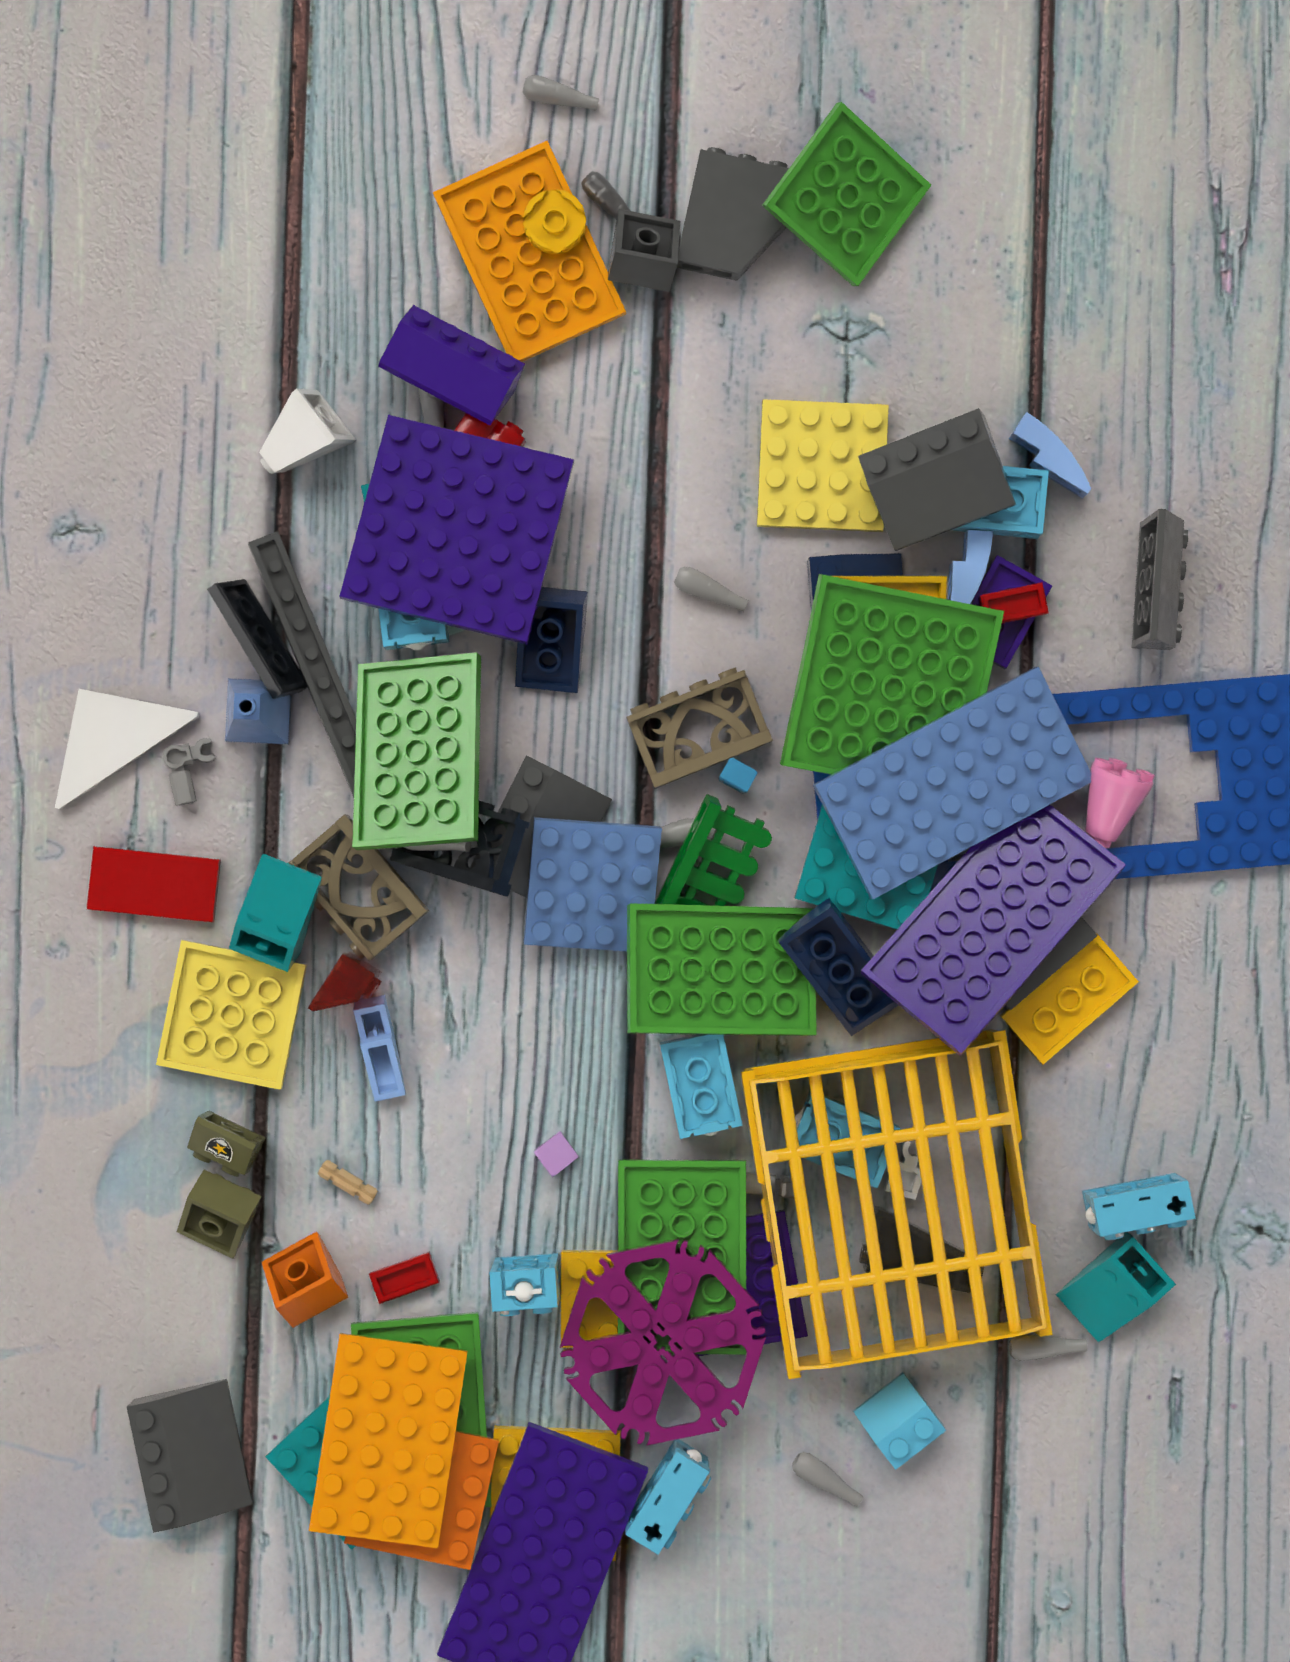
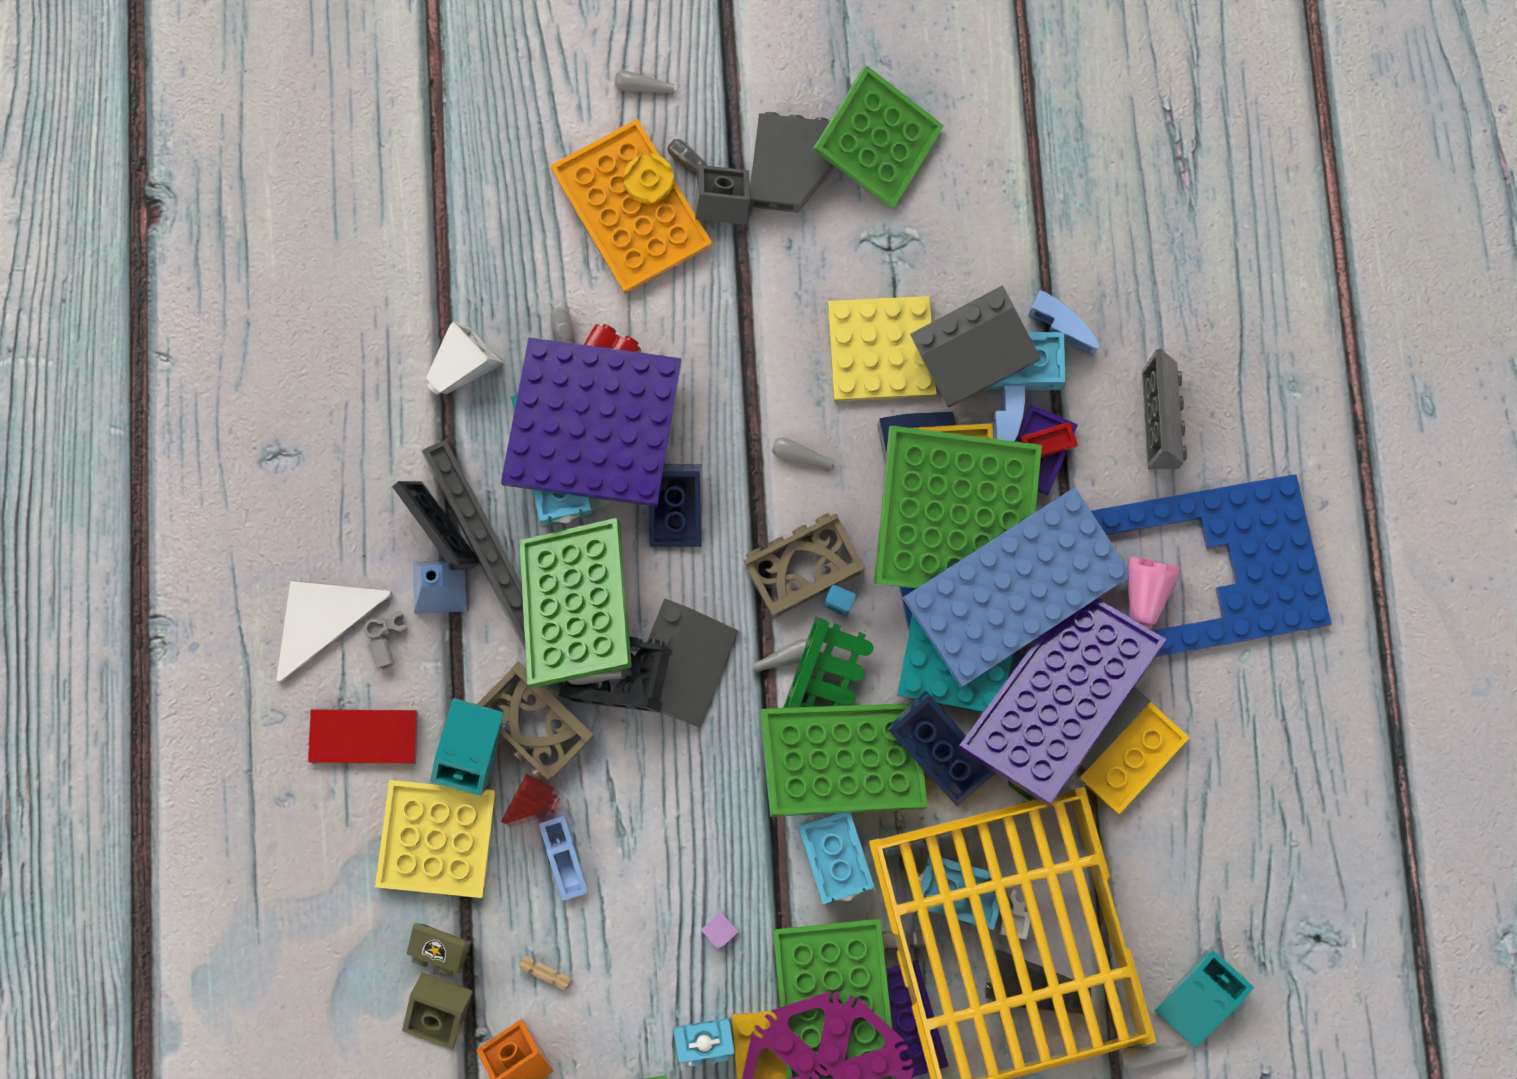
camera: 10 degrees left, 10 degrees down
(404, 1277) = (599, 1051): red tile -> none
(451, 365) = (576, 294): dark purple slope -> none
(585, 879) = (722, 698): medium blue plate -> none
(1138, 1206) = (1214, 925): medium azure piece -> none

